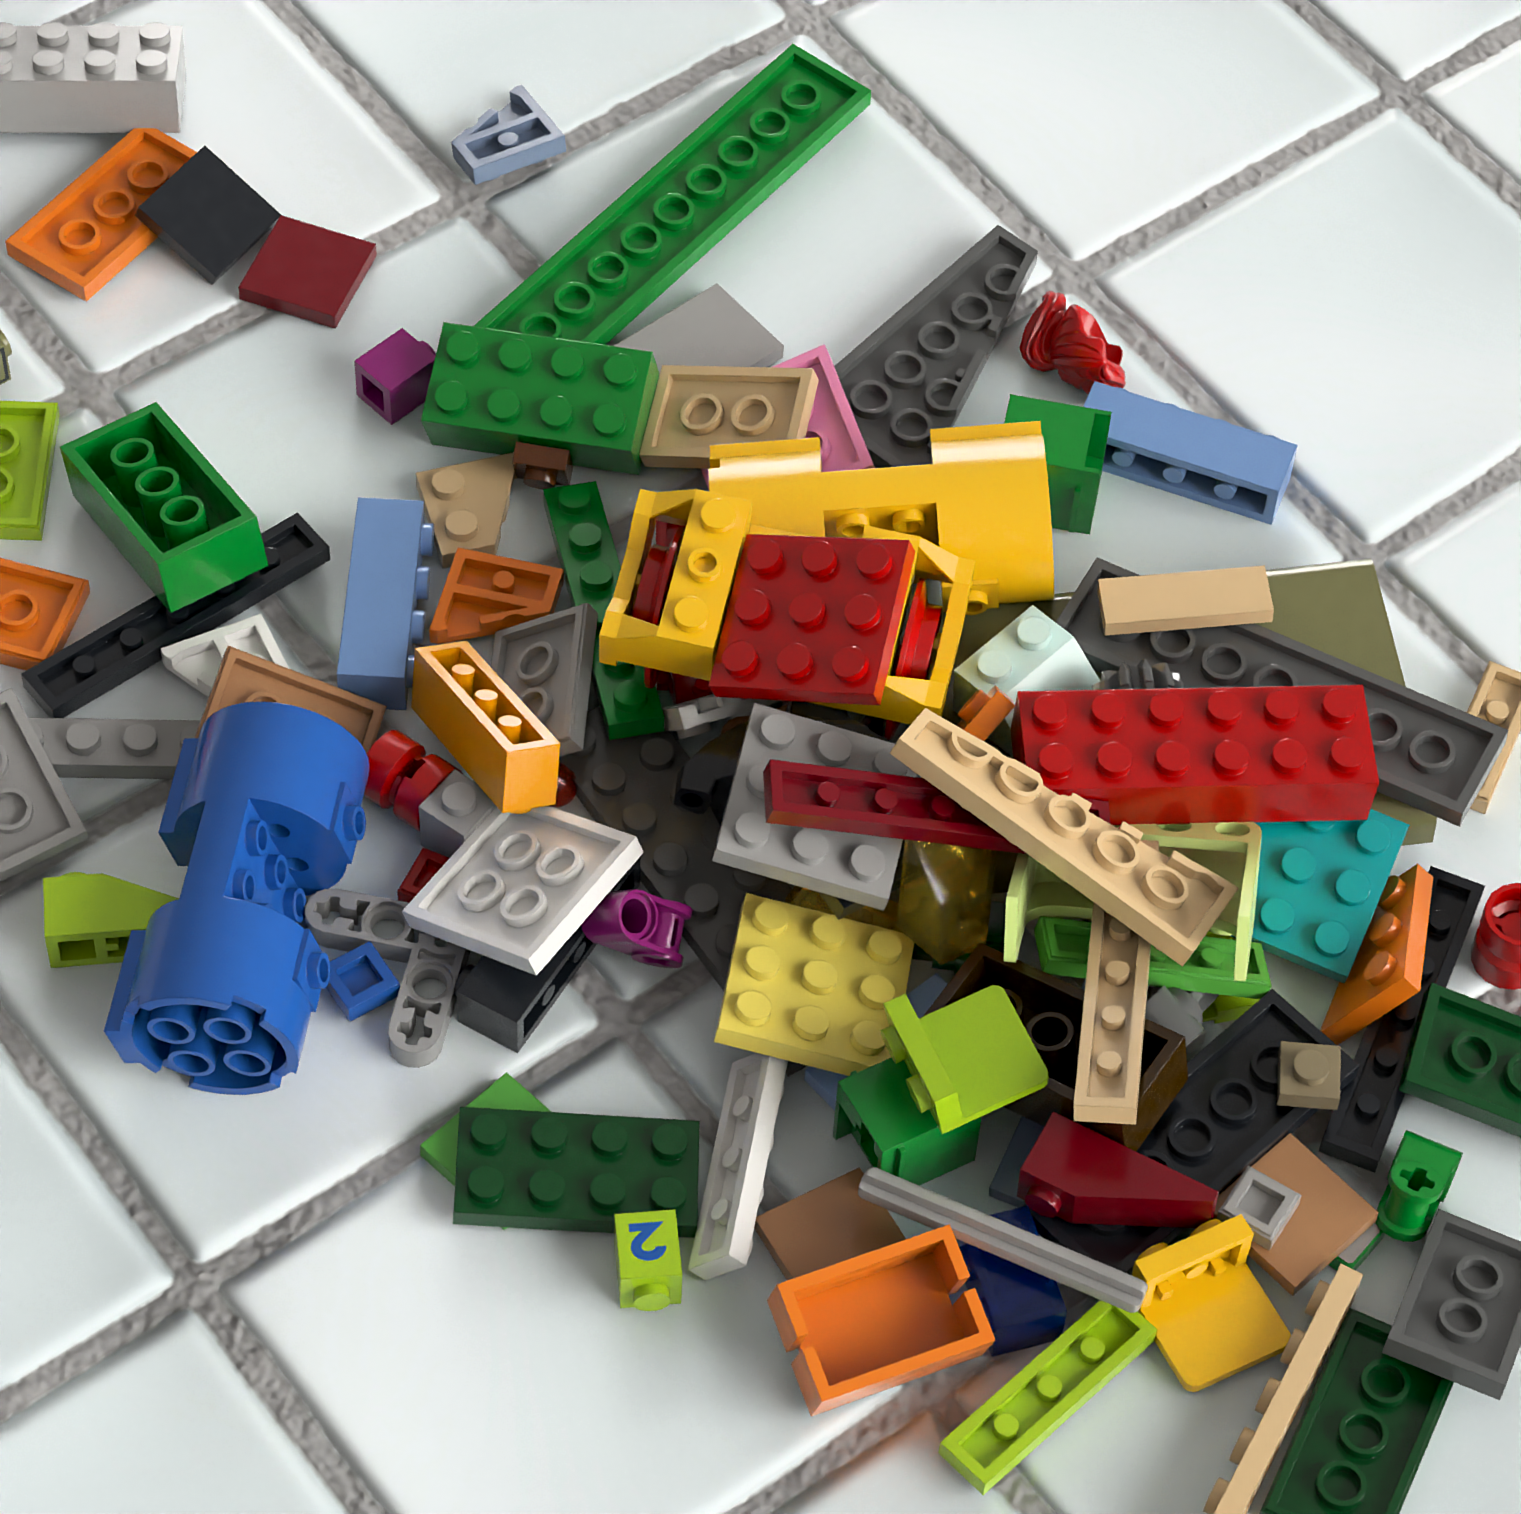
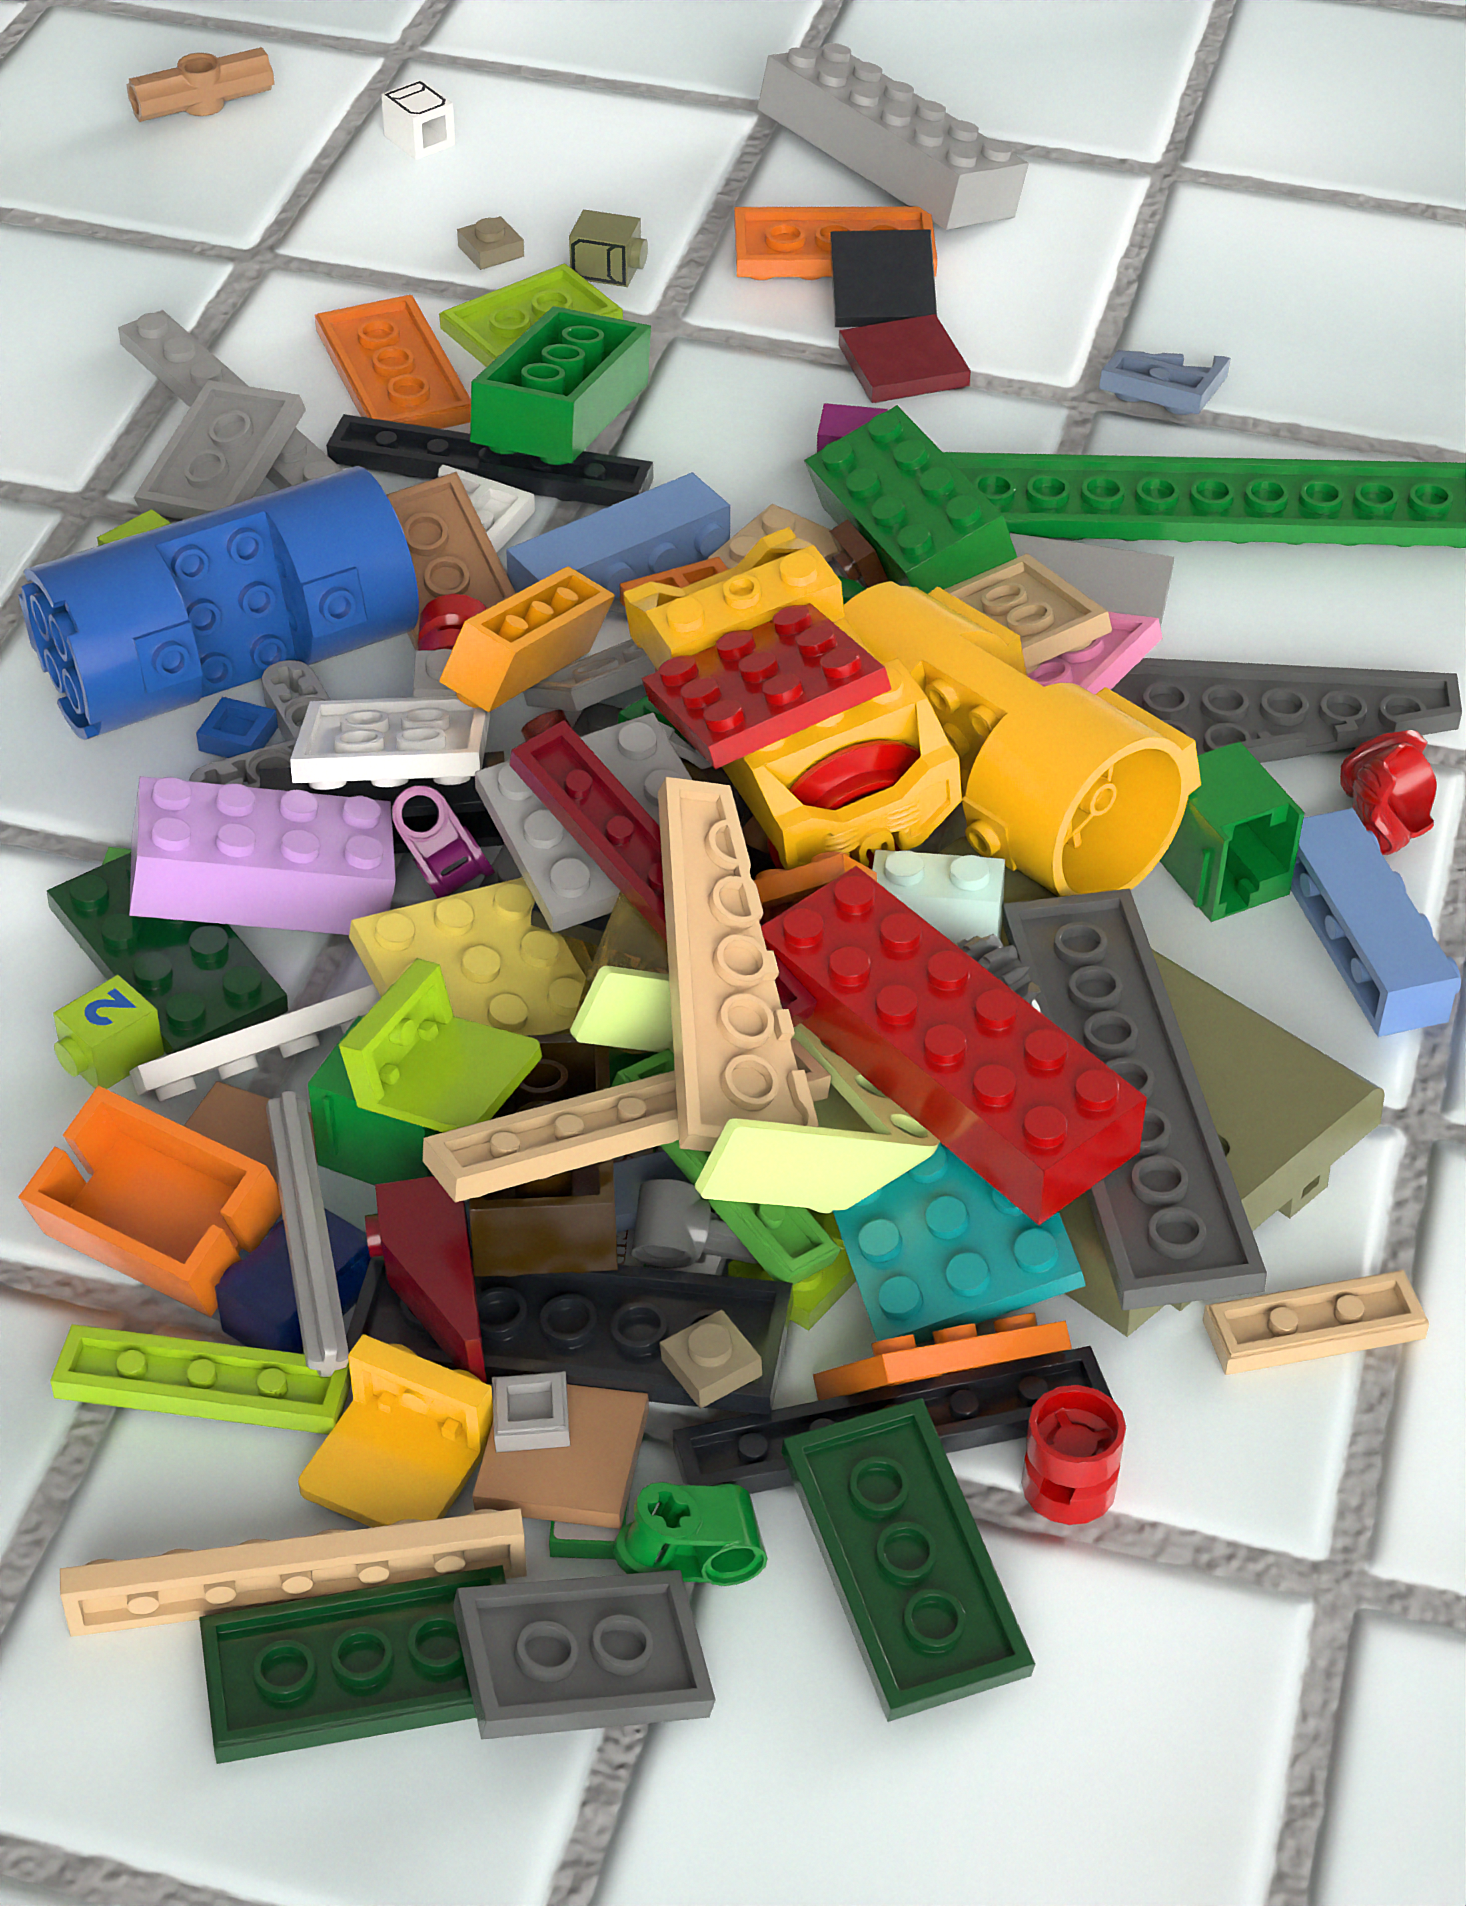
camera: 55 degrees right, 10 degrees down
(566, 1048) = (259, 856): none -> lavender brick
(1185, 600) = (1142, 962): tan tile -> none

